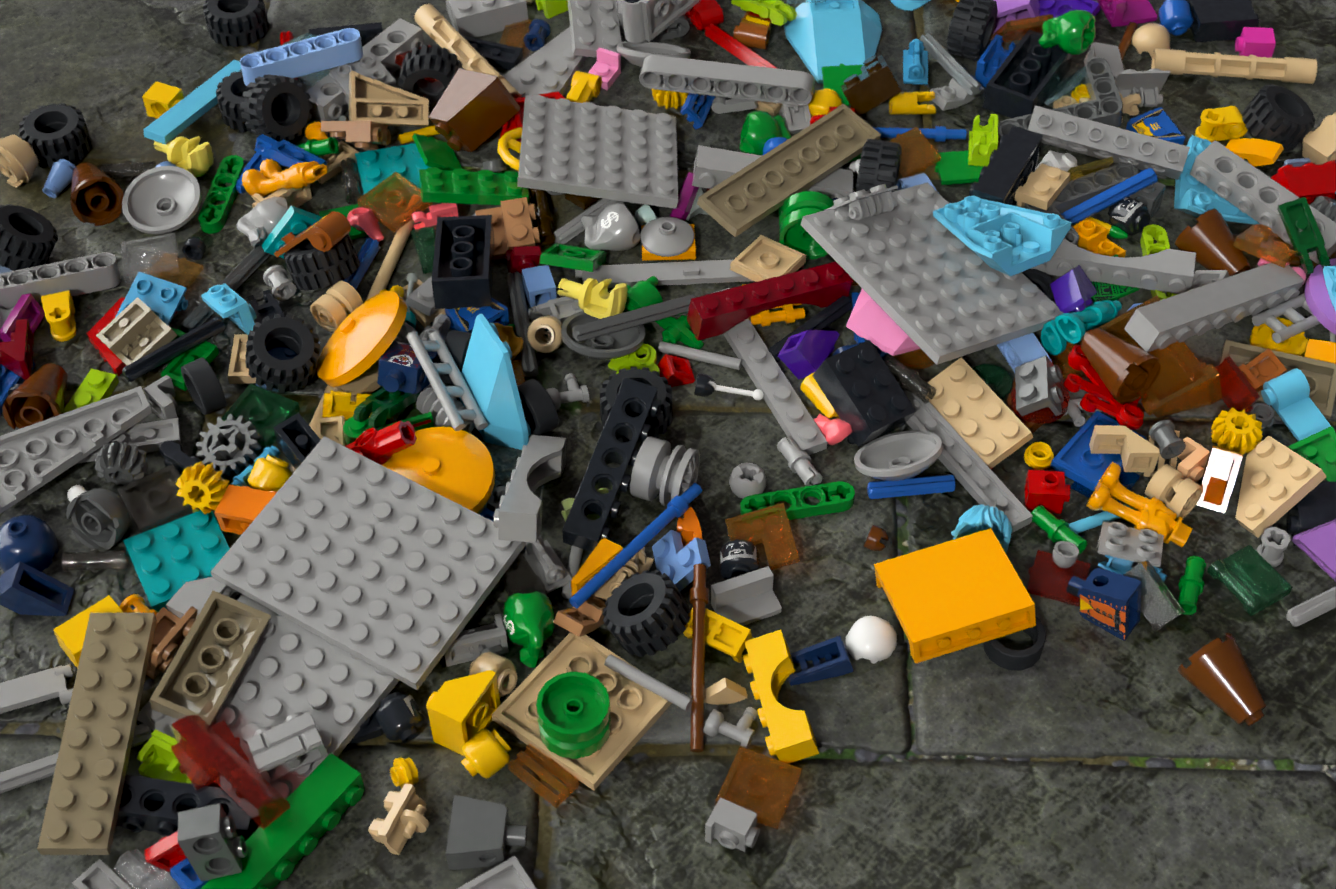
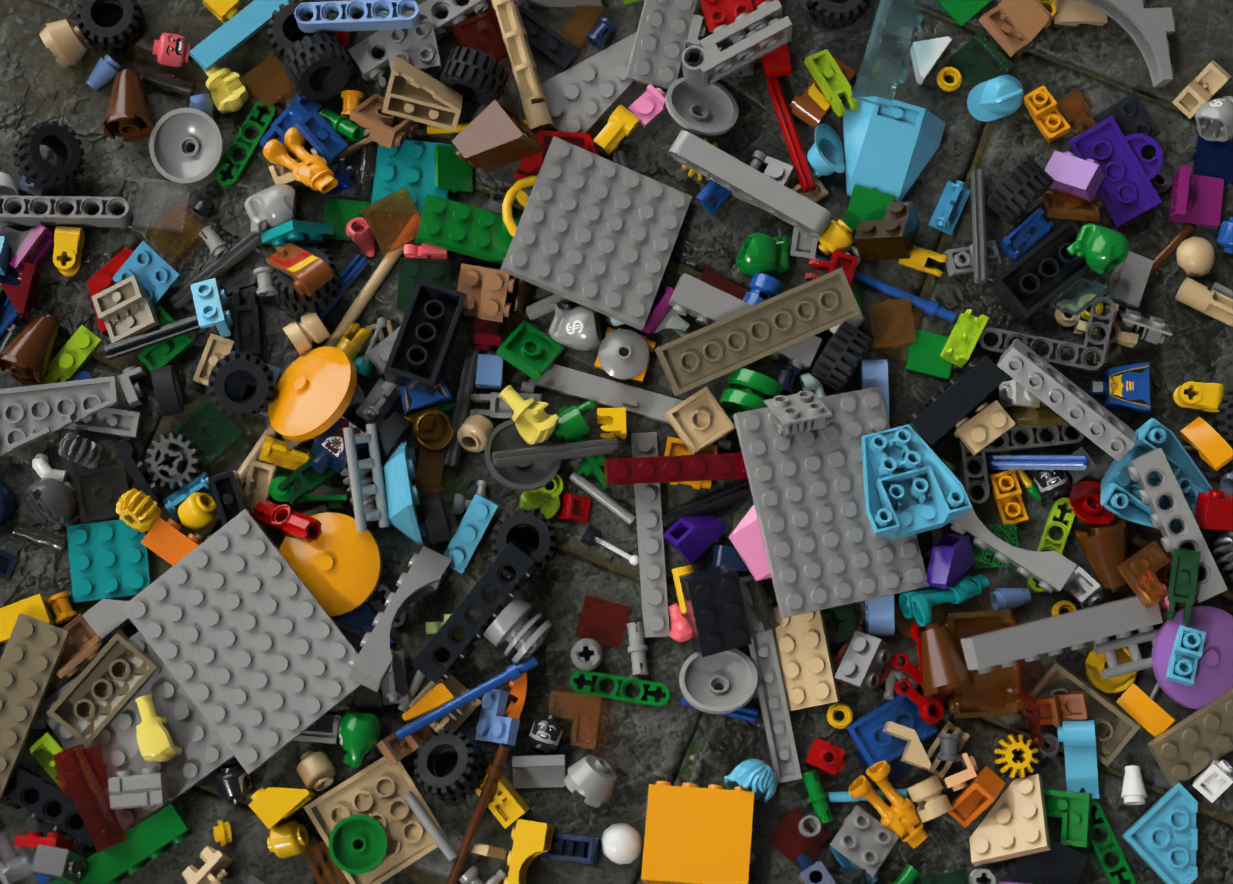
camera: 15 degrees right, 30 degrees up
(124, 144) = (171, 50): none -> coral head
(216, 270) = (213, 241): none -> light grey pin
(232, 143) = (268, 81): none -> clear orange piece
(290, 680) = (151, 734): none -> light yellow piece
(325, 192) = (344, 179): none -> clear blue bracket
(576, 414) = (470, 532): none -> medium azure plate
(681, 277) = (612, 421): none -> yellow hinge
(750, 449) = (602, 621): none -> clear red piece
(784, 57) = (827, 152): none -> medium azure piece
(810, 578) = (592, 779): none -> light grey cone
(873, 538) = (667, 749): reddish brown hinge -> none
(1174, 221) = (1085, 503): none -> red dish

